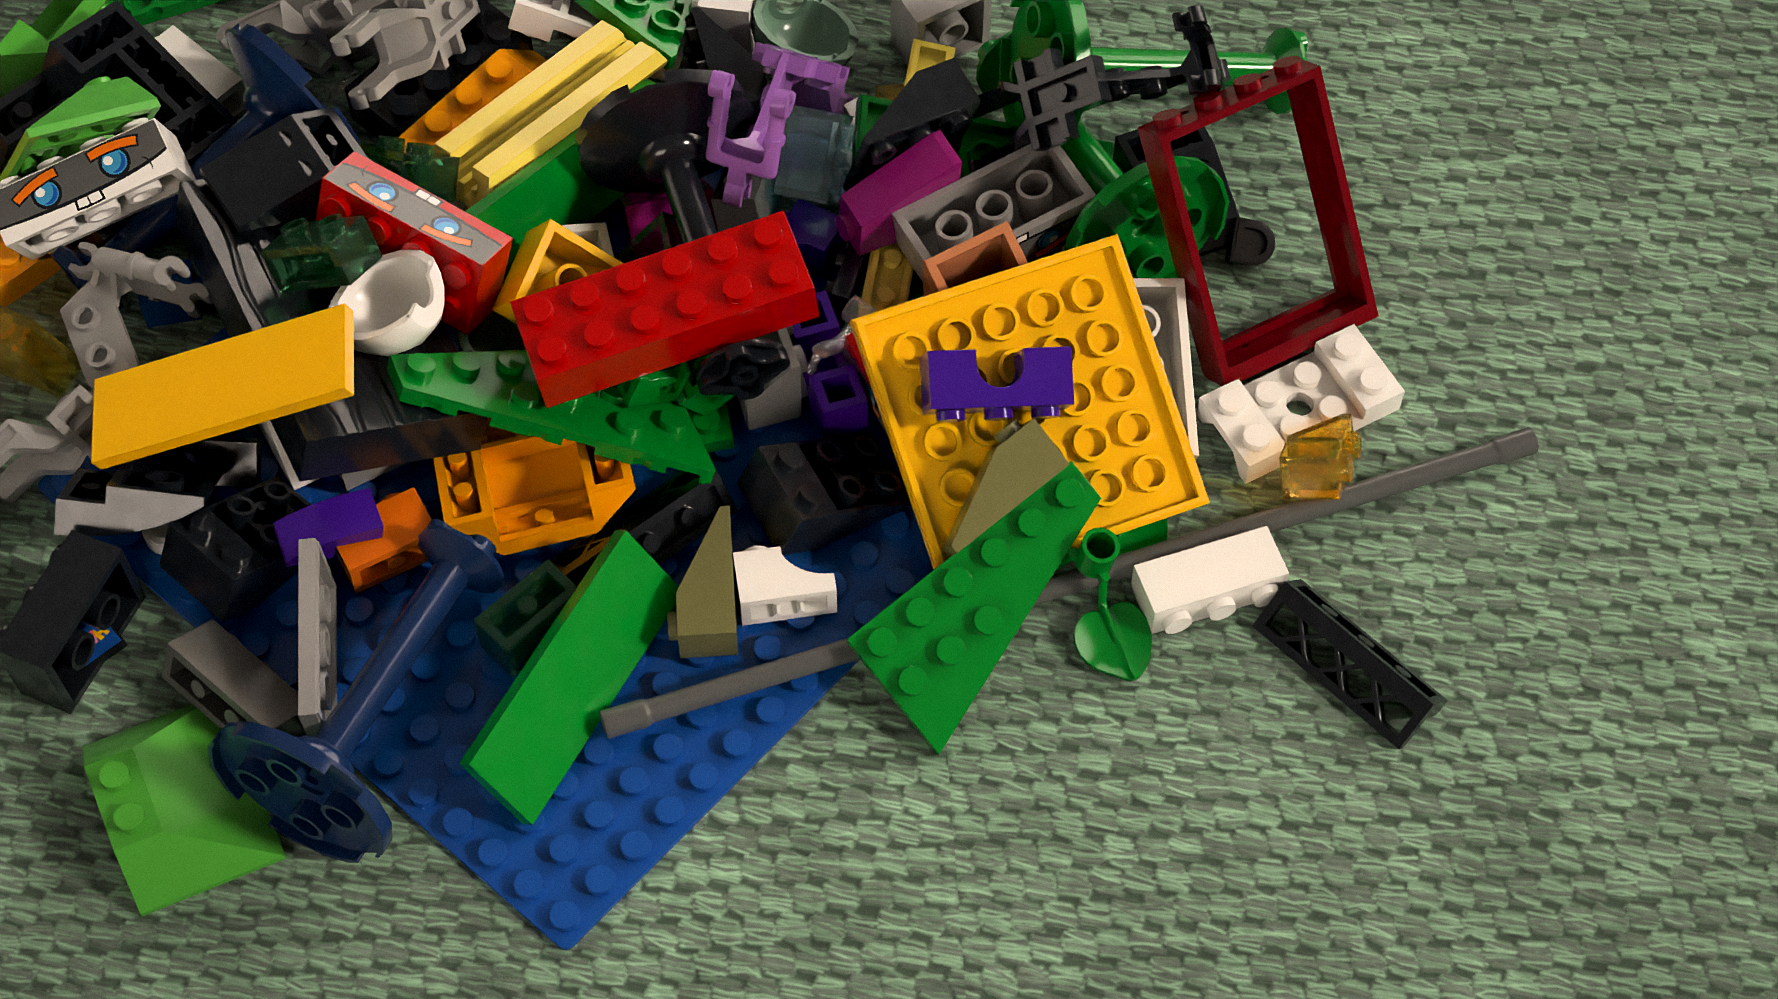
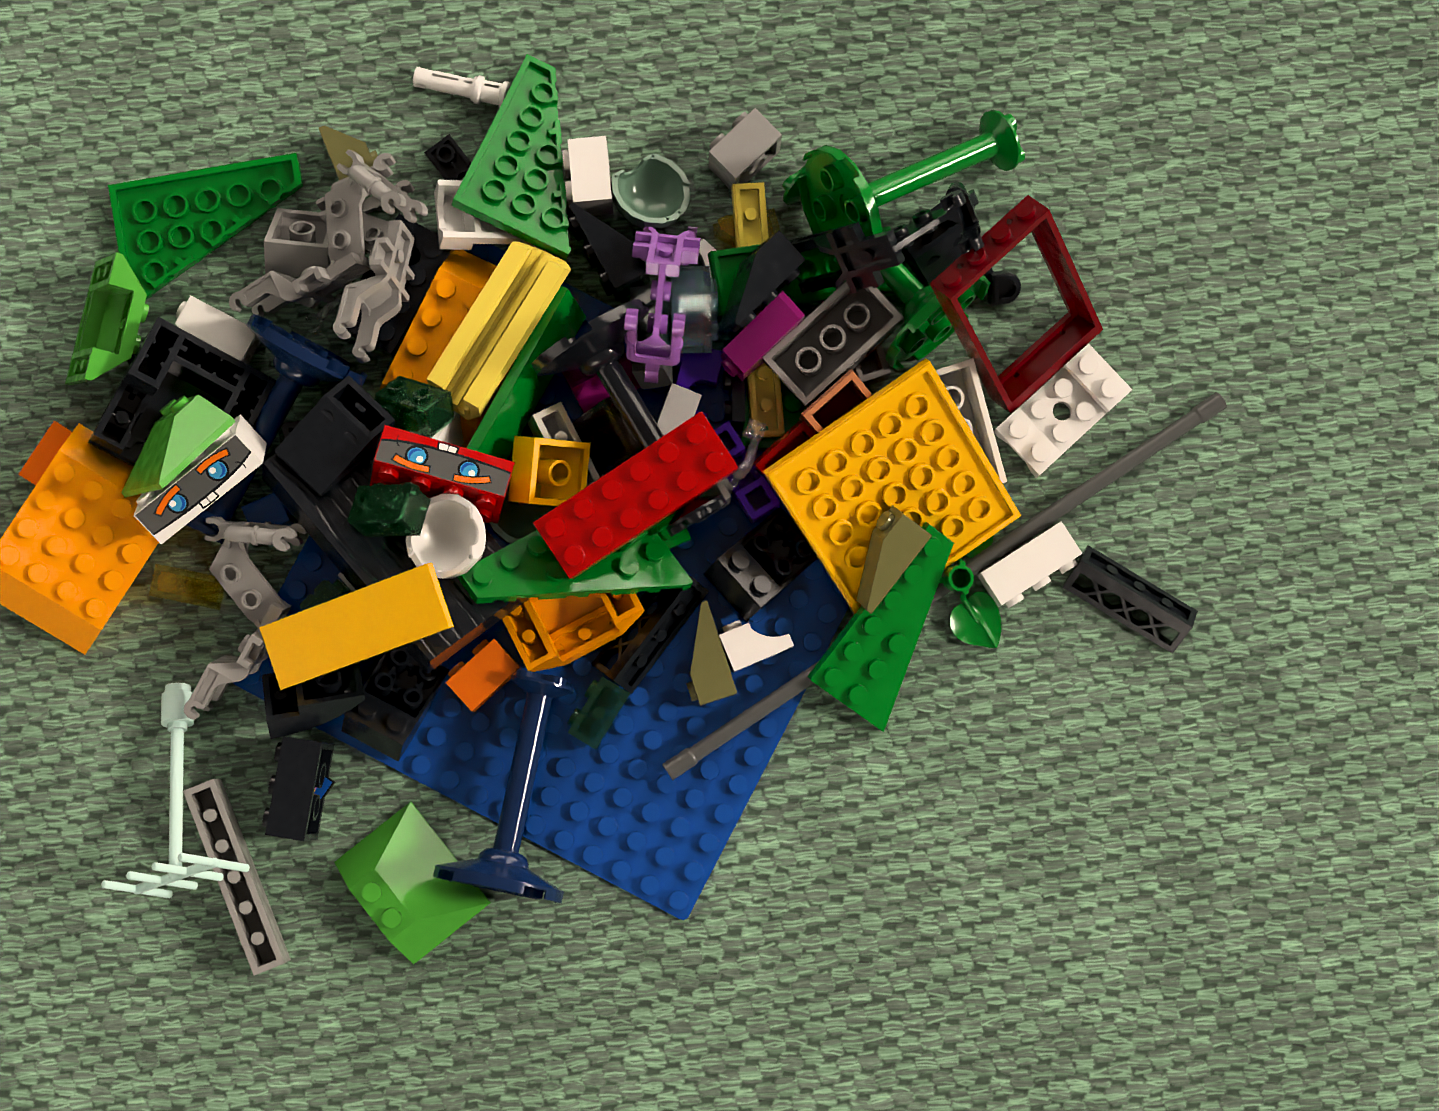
camera: 20 degrees left, 25 degrees up
(229, 680) = (423, 804): dark grey brick -> none
(316, 637) = (470, 771): light grey tile -> none
(332, 522) = (449, 686): dark purple slope -> none
(571, 678) = (641, 748): green tile -> none
(955, 387) = (898, 486): dark purple arch -> none
(1320, 459) = (1085, 460): clear yellow slope -> none

